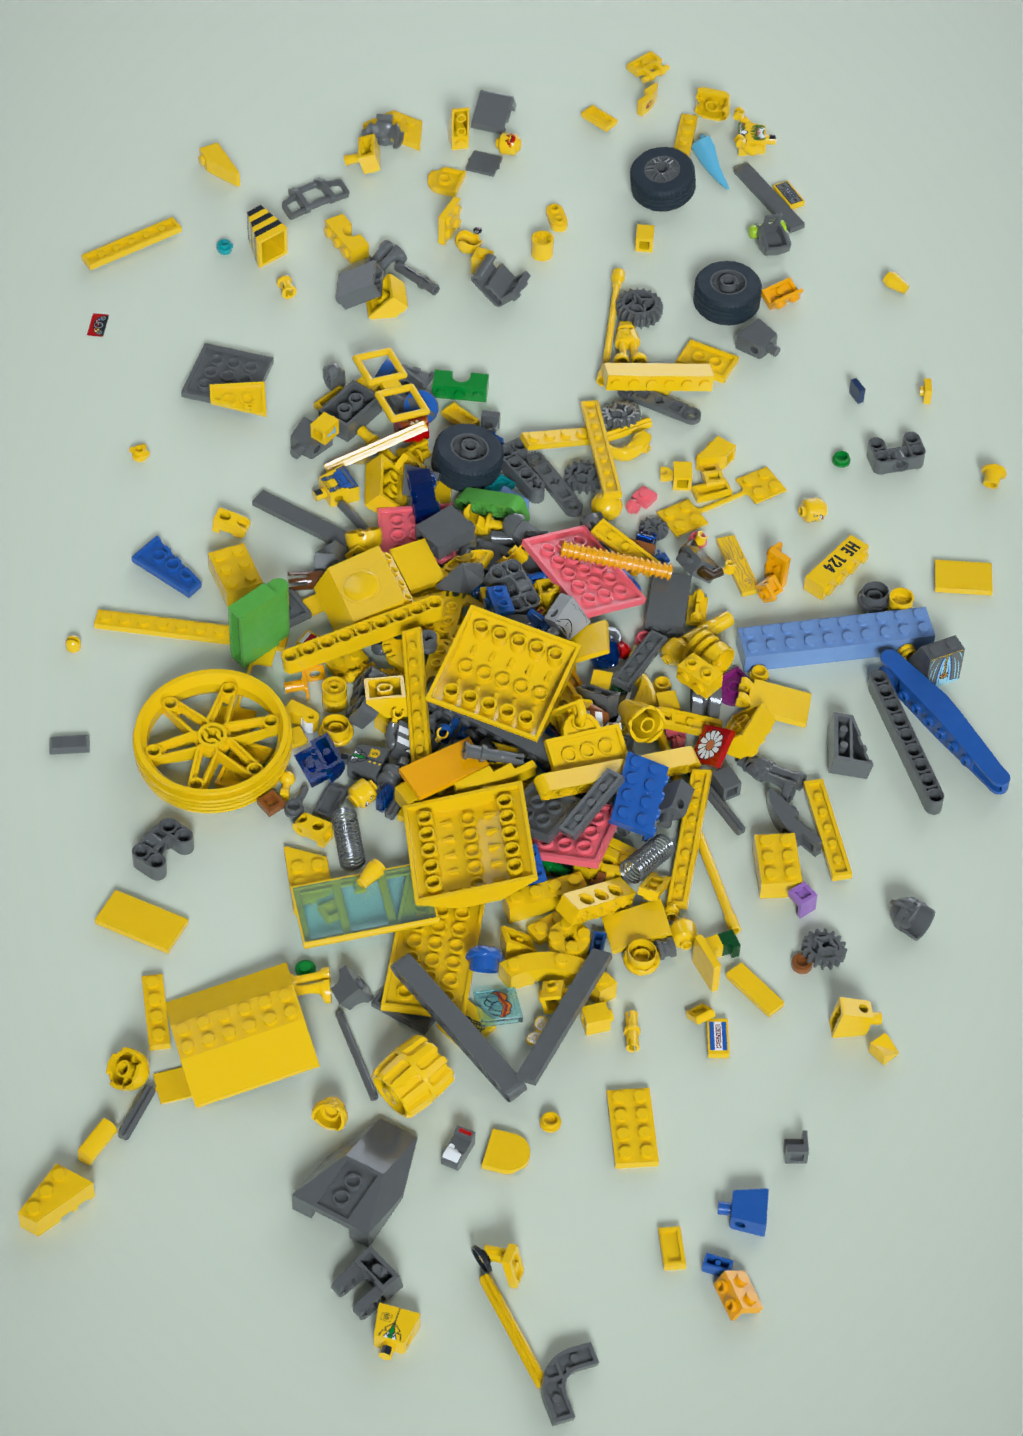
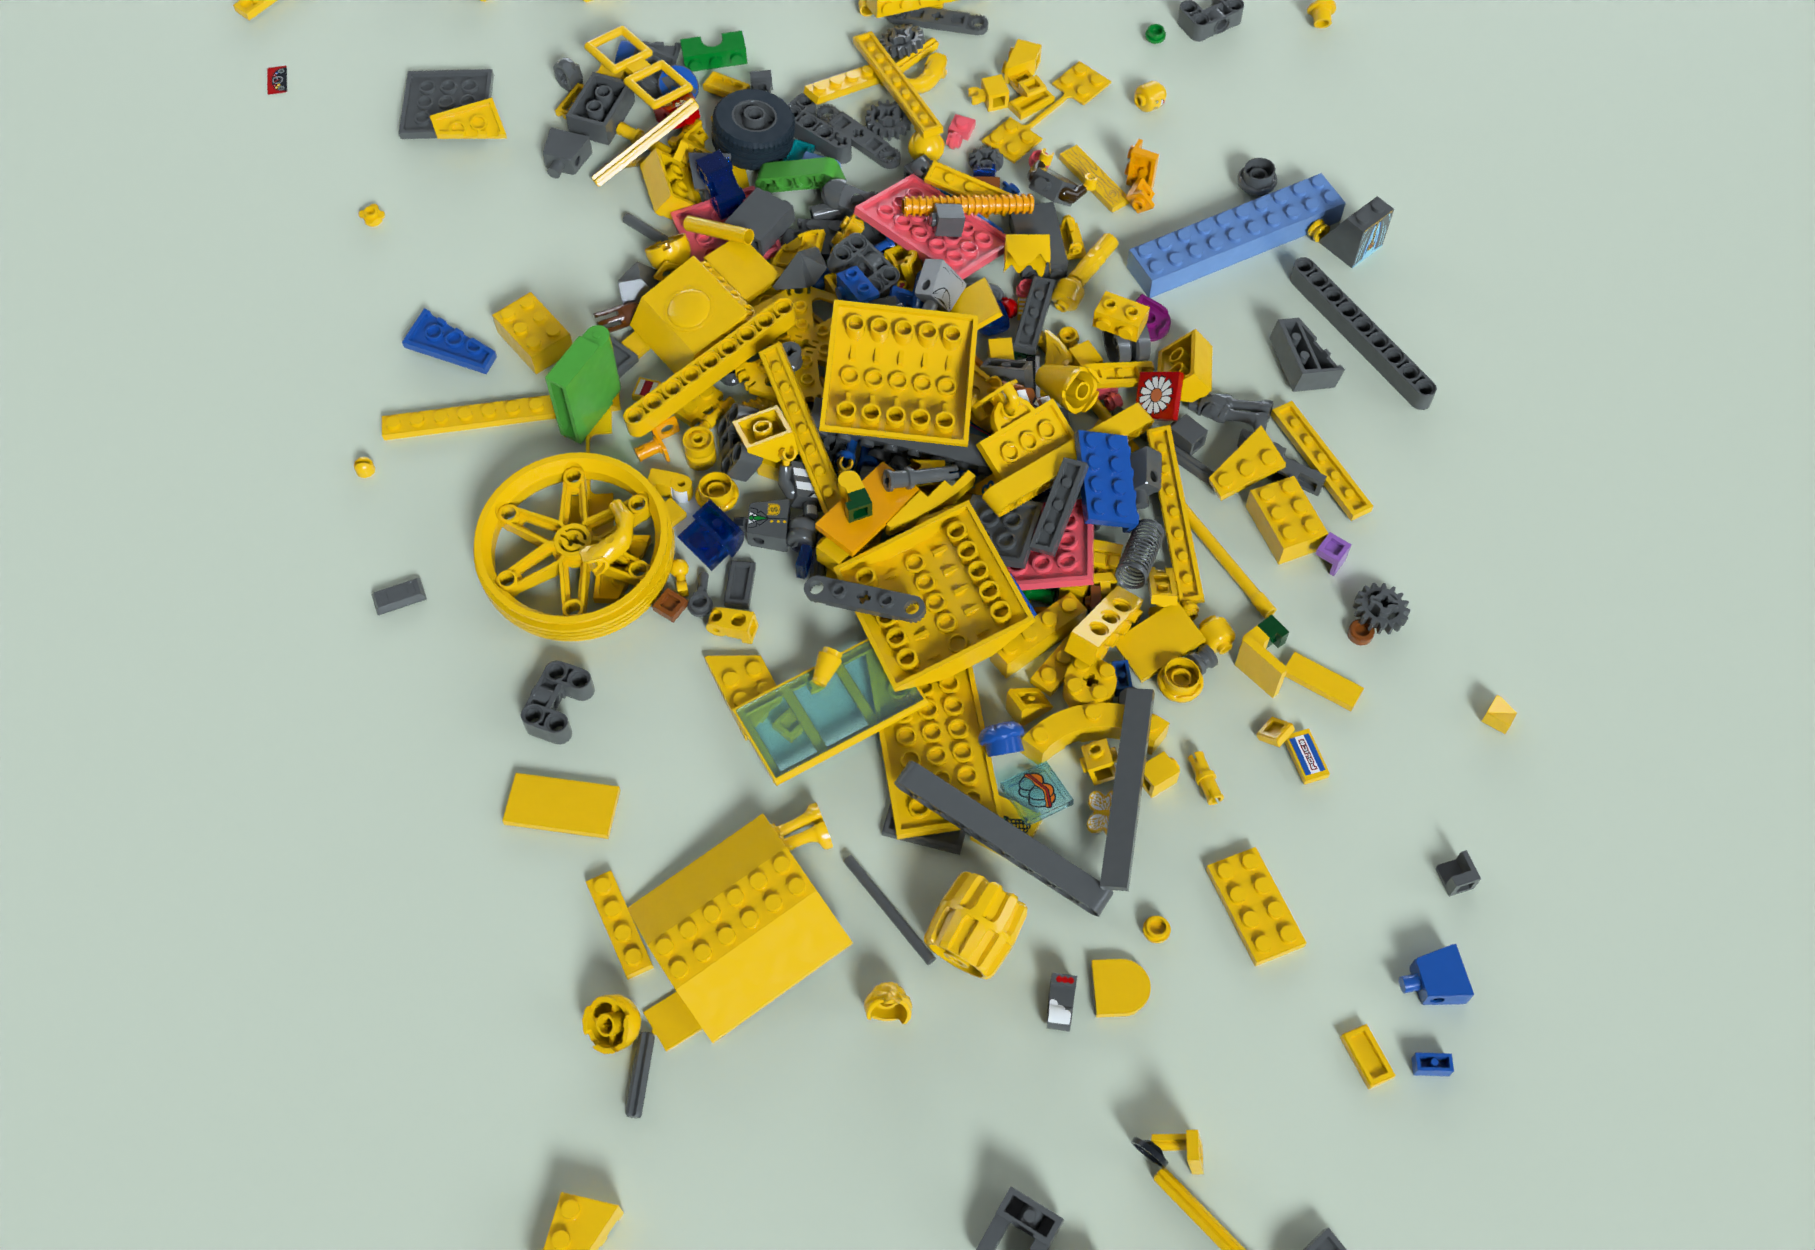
camera: 15 degrees left, 10 degrees up
(96, 1141) = (603, 1136): yellow brick -> none
(230, 523) = (506, 271): yellow leg -> none
(240, 745) = (615, 545): none -> yellow piece
(299, 518) = (584, 246): dark grey tile -> none
(305, 967) = (785, 810): green plate -> none
(324, 428) = (580, 134): yellow brick -> none
(337, 486) = (615, 199): torso -> none
(351, 853) = (790, 647): dark grey piece -> none
(351, 989) = (852, 823): dark grey brick -> none
(360, 1181) = (957, 1086): dark grey wedge -> none
(362, 793) = (775, 562): yellow head -> none
(408, 531) = (718, 230): none -> yellow piece
(428, 838) = (882, 601): none -> dark grey piece
(434, 749) = (858, 502): none -> leg
(482, 525) = (799, 201): yellow piece -> none
(593, 567) = (947, 220): none -> dark grey brick
(649, 607) = (1027, 250): none -> yellow piece
(711, 650) = (1104, 279): yellow wheel -> none
(737, 1294) = (1472, 1097): light orange bracket -> none
(759, 672) = (1169, 296): yellow plate -> none
(761, 816) = (1247, 465): none -> yellow wing
(783, 703) = (1215, 322): yellow tile -> none
(836, 567) = (1202, 154): yellow brick -> none
(852, 1018) = (1452, 687): yellow torso -> none
(900, 599) = (1290, 172): yellow wheel -> none
(911, 916) = (1461, 540): dark grey helmet -> none
(944, 721) = (1396, 298): blue piece -> none
(963, 577) = (1338, 131): yellow tile -> none

